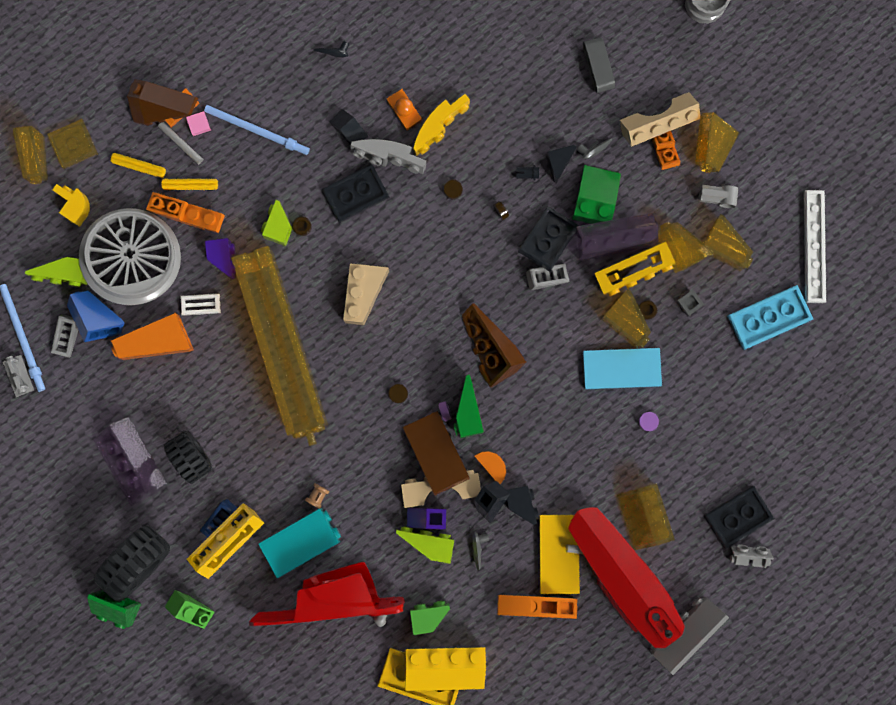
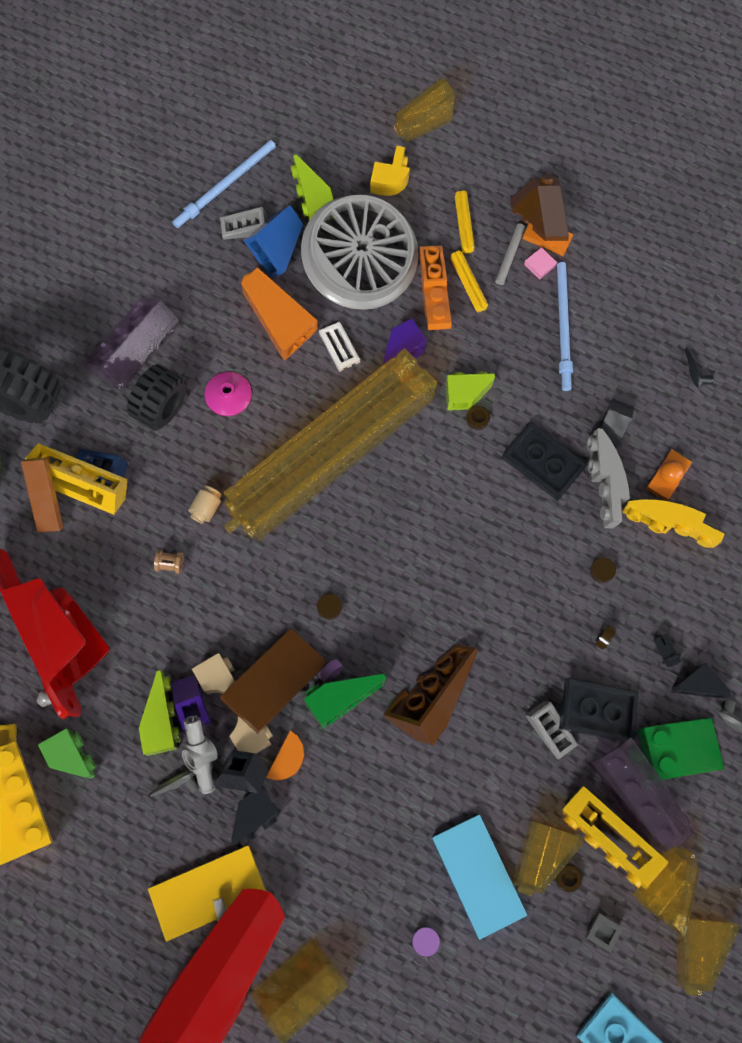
camera: 65 degrees right, 10 degrees down
(18, 375) = (182, 195): light grey hinge -> none
(72, 143) = (456, 150): clear yellow tile -> none
(211, 407) = (228, 403): none -> dark pink dish
(228, 569) = (42, 494): none -> dark orange tile
(285, 453) = (205, 504): none -> tan brick
(300, 542) = (105, 564): teal brick -> none
(362, 291) = (432, 513): tan wedge -> none
(466, 524) = (199, 754): none -> light grey pin
(537, 606) = (128, 892): orange slope -> none

